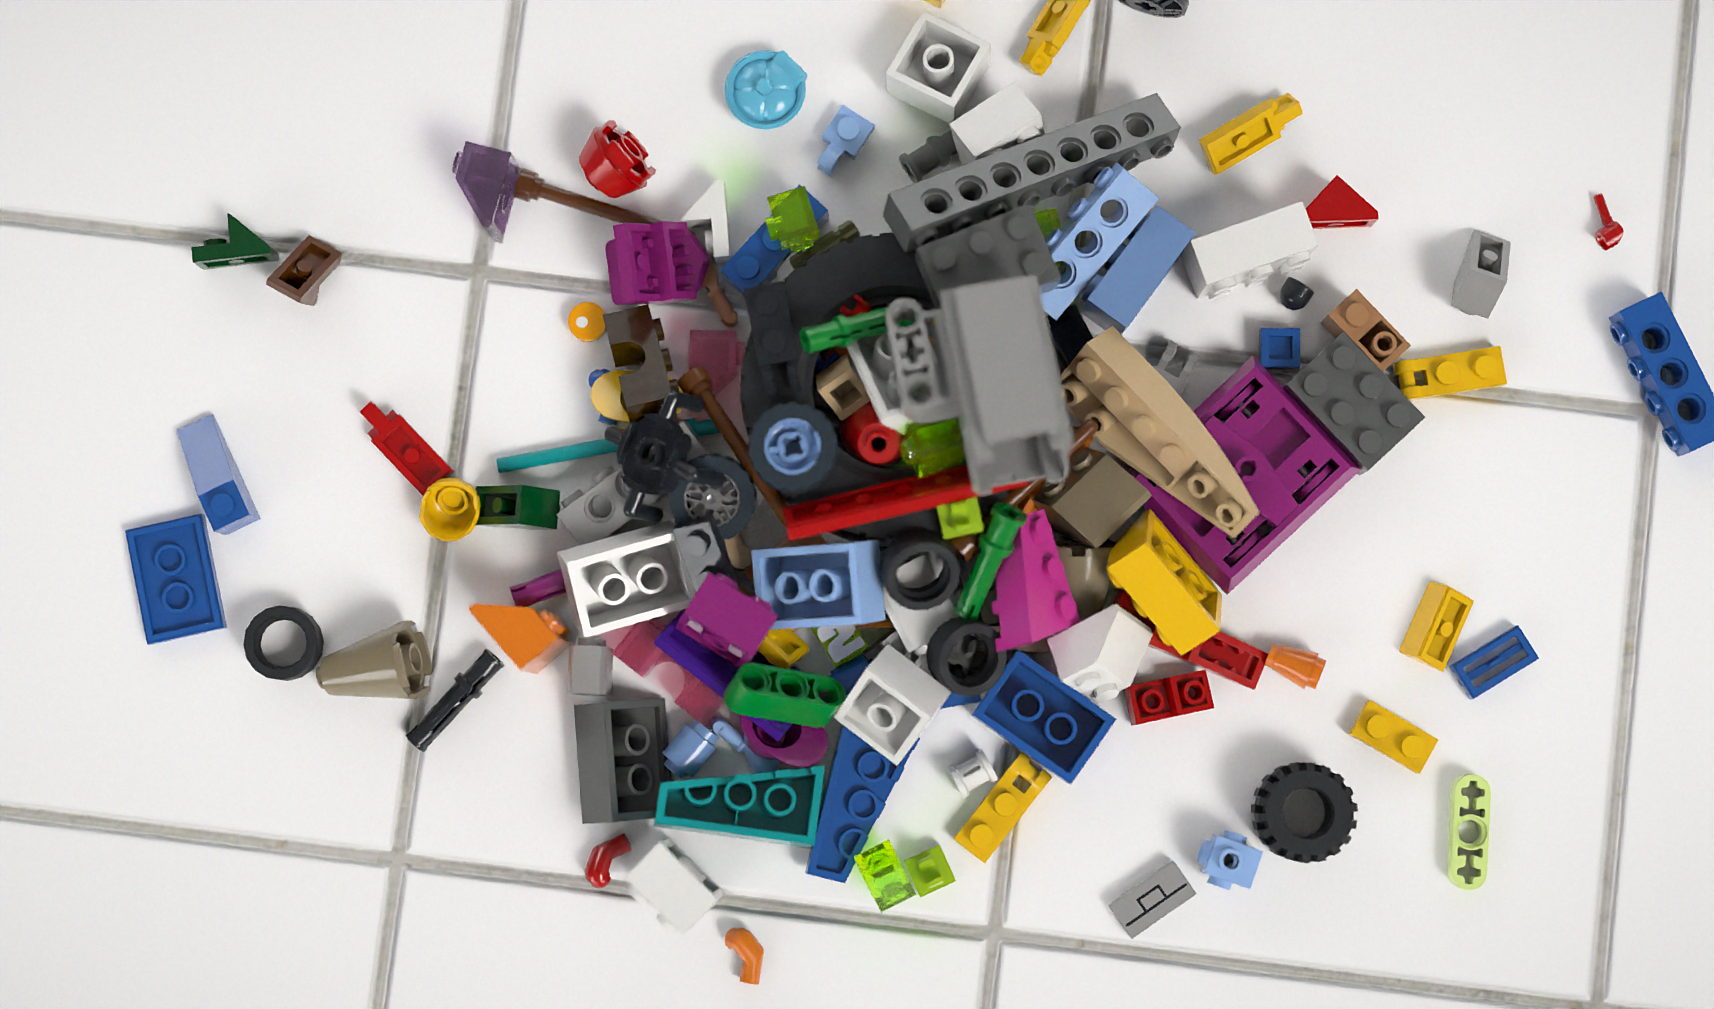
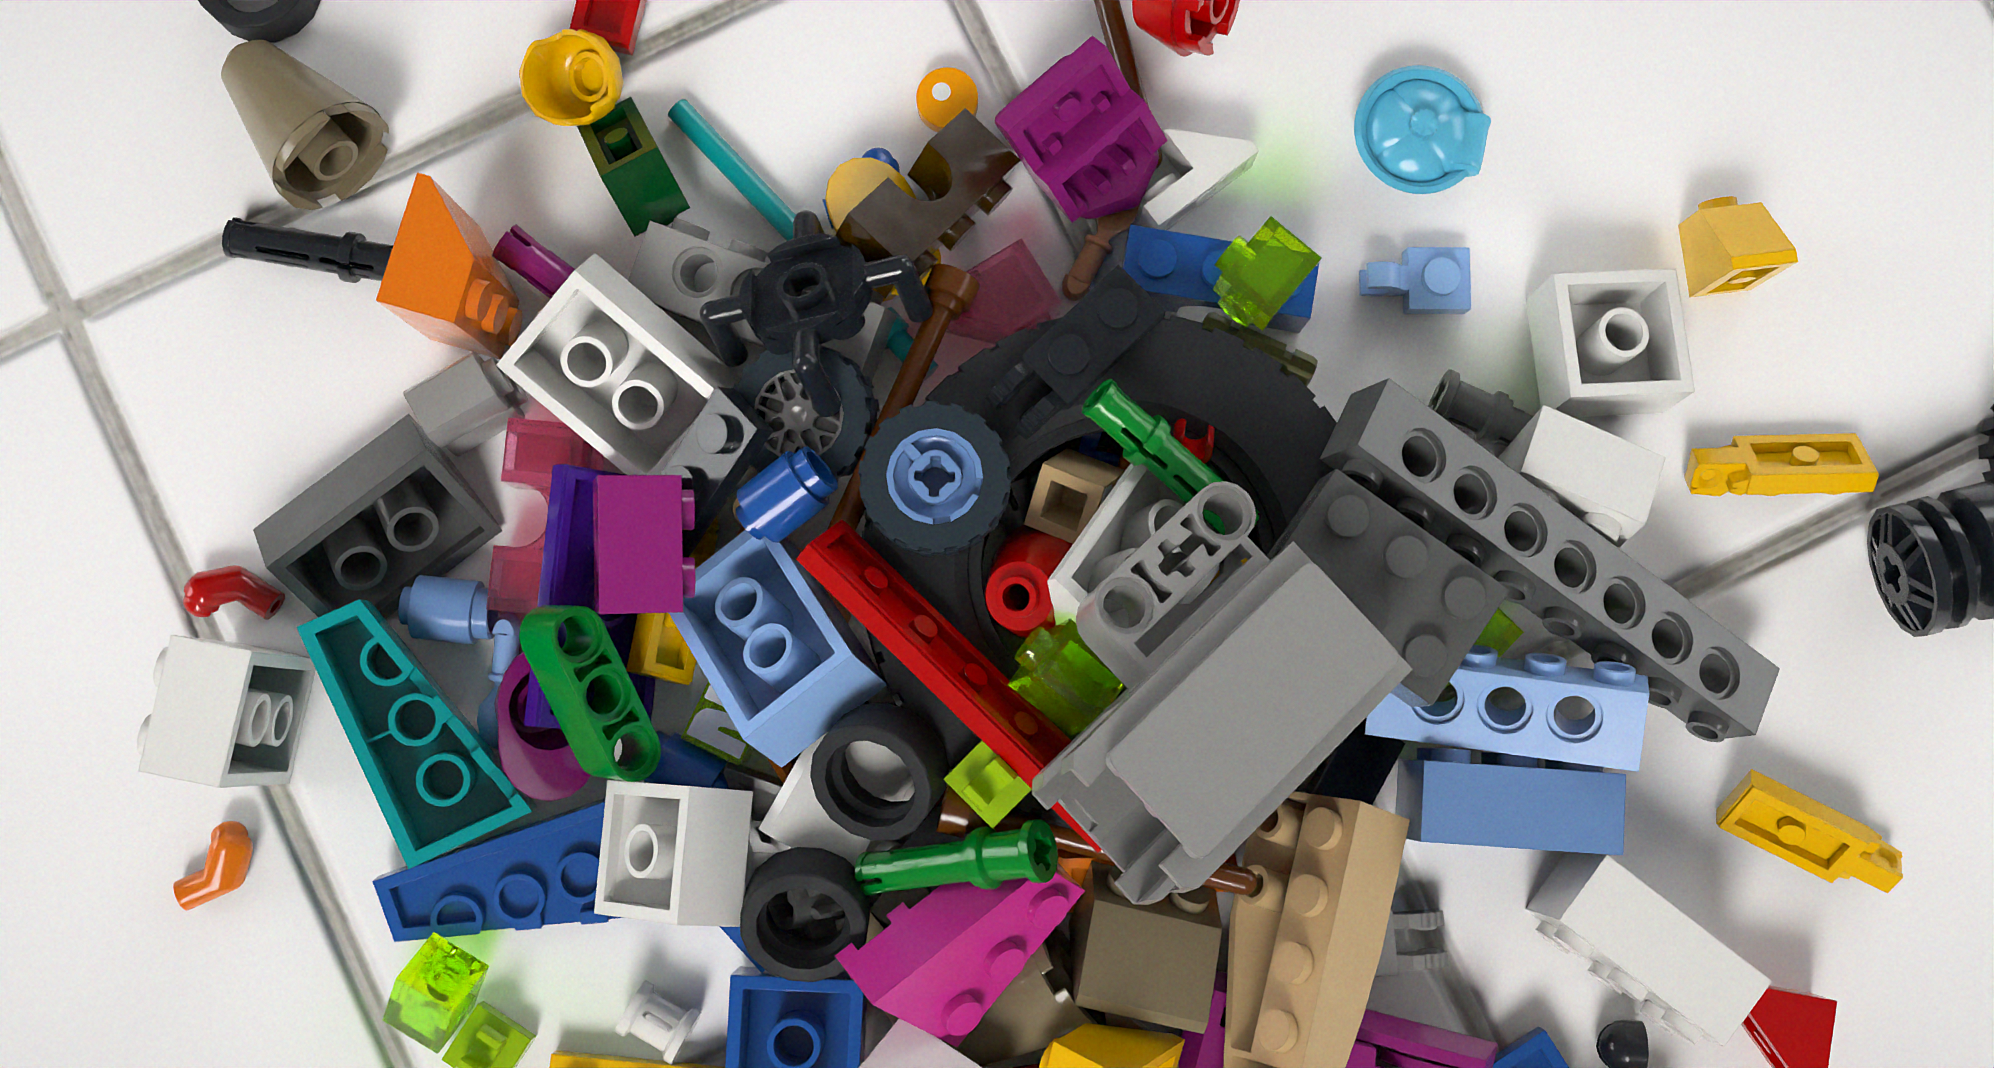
camera: 50 degrees right, 0 degrees up
(750, 530) = (785, 495): none -> blue brick

